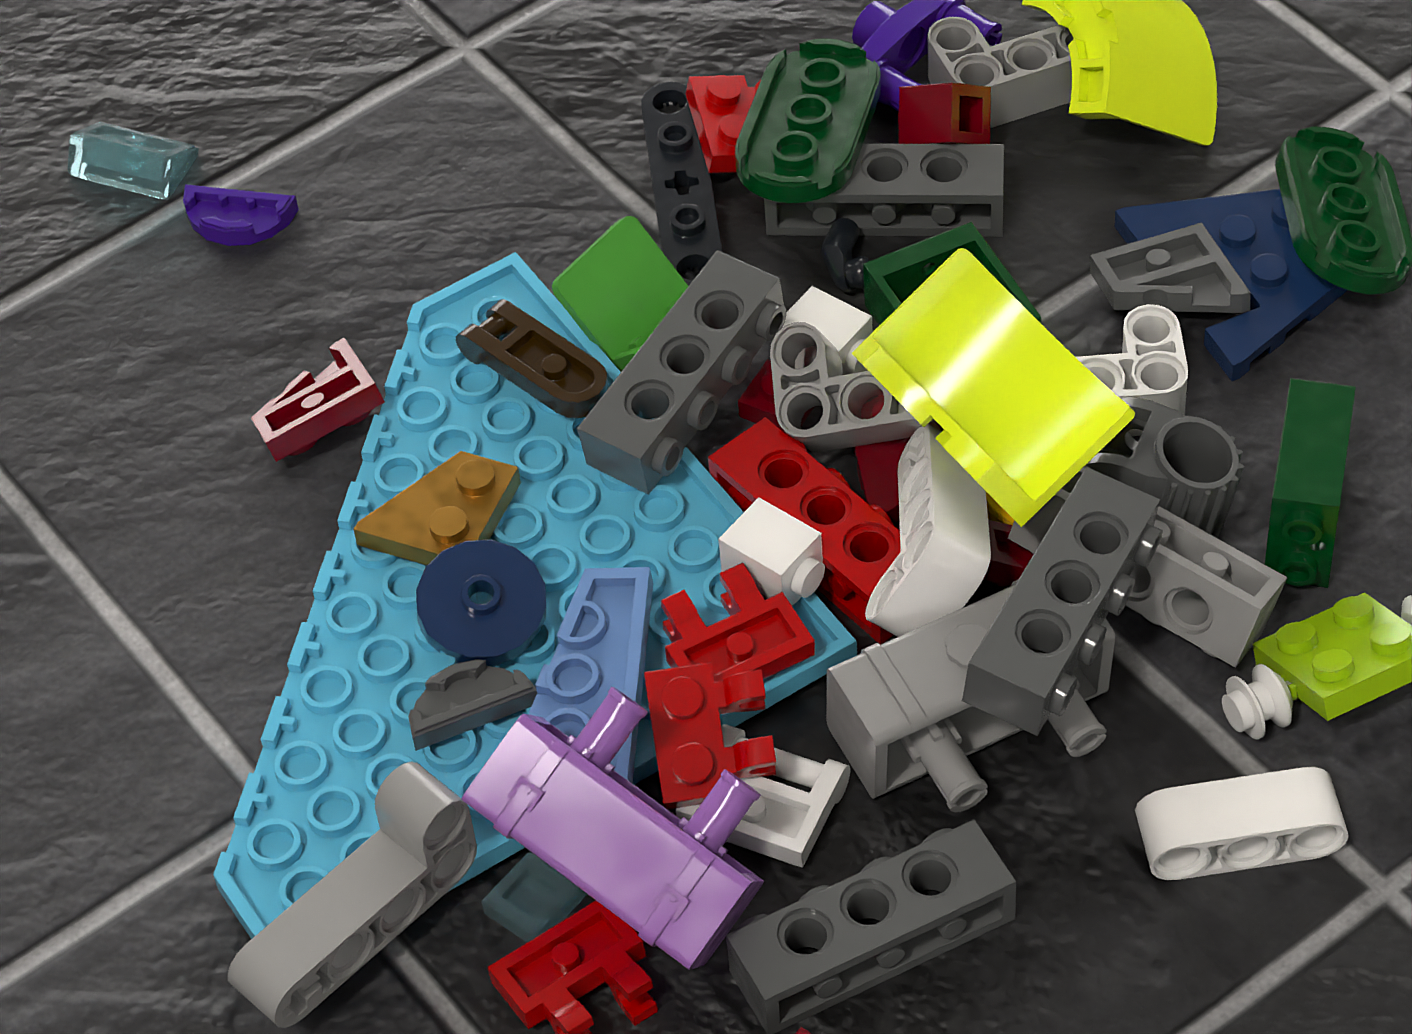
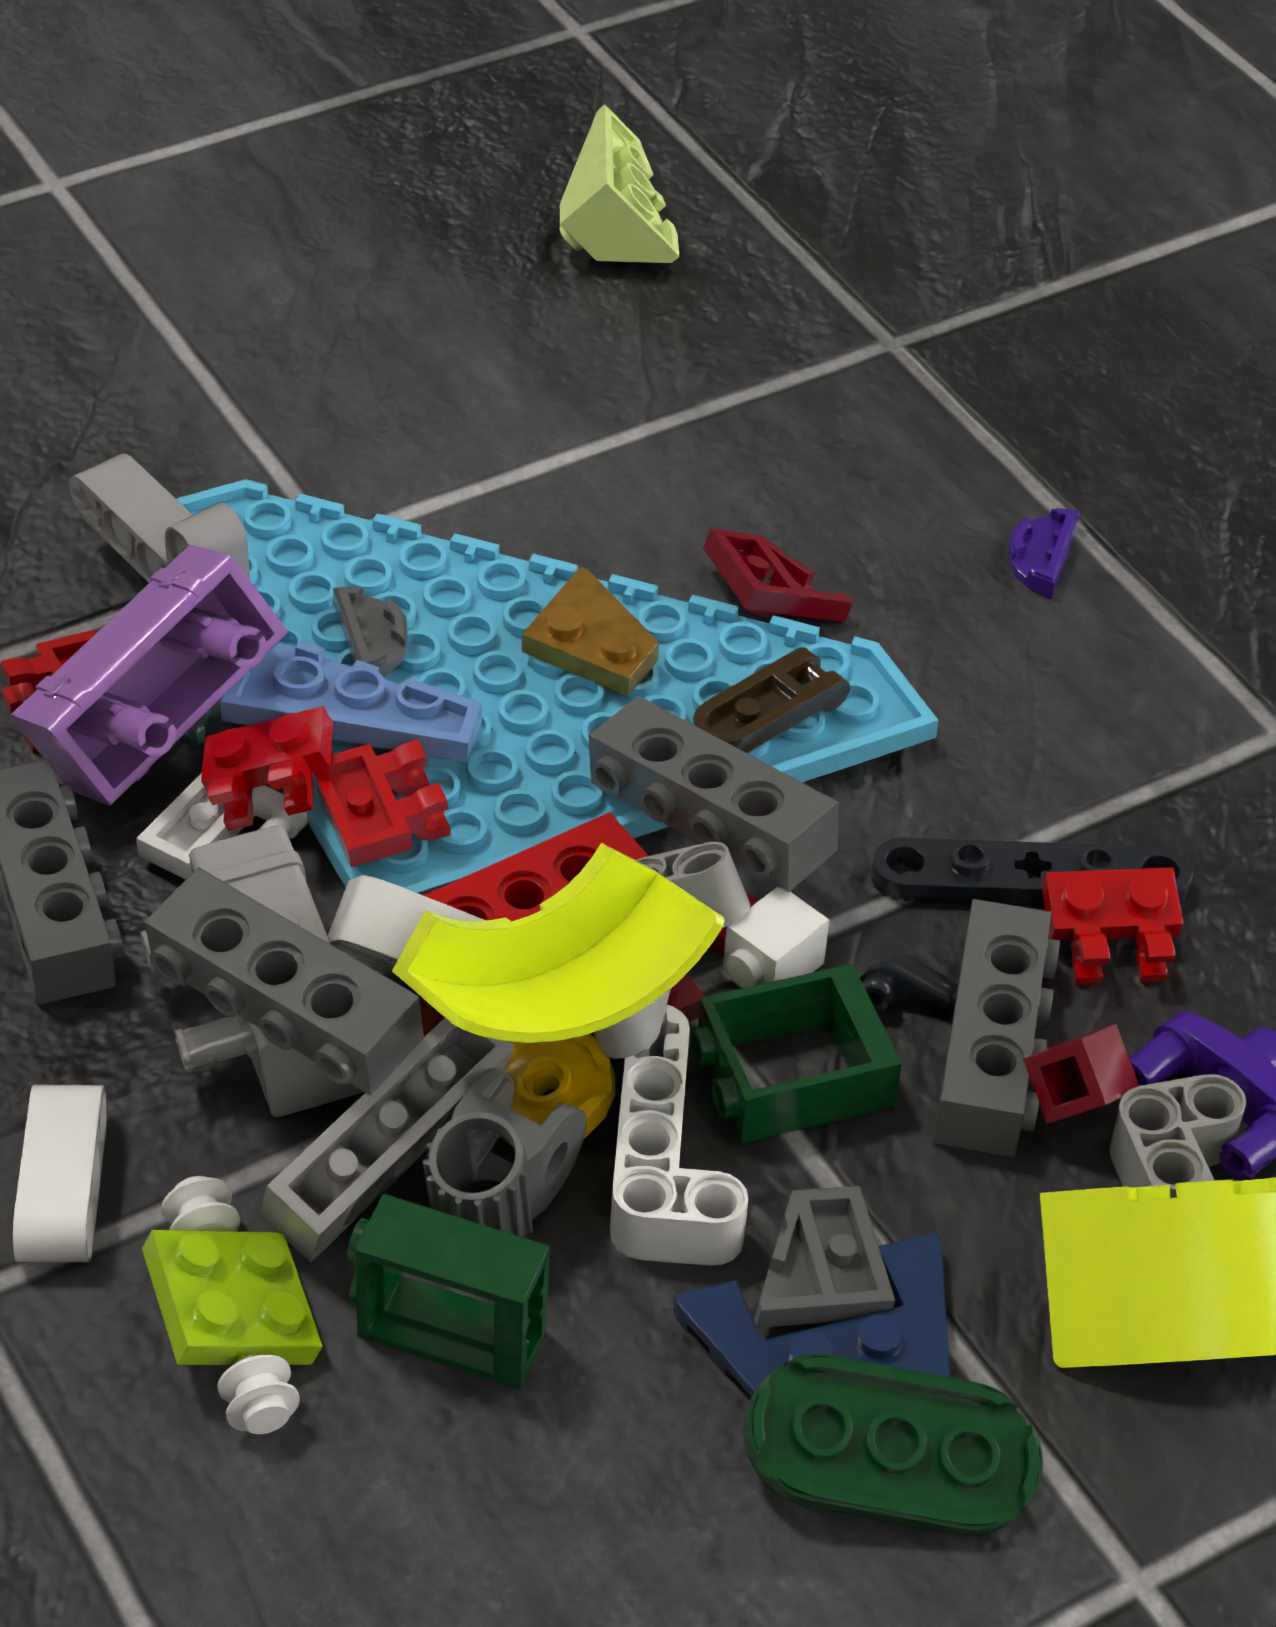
camera: 90 degrees right, 5 degrees down
(129, 159) = (1132, 484): clear light blue slope -> none
(487, 630) = (468, 638): dark blue plate -> none
(620, 289) = (869, 777): bright green bracket -> none
(776, 551) = (463, 833): white brick -> none
(808, 121) = (1077, 944): dark green tile -> none

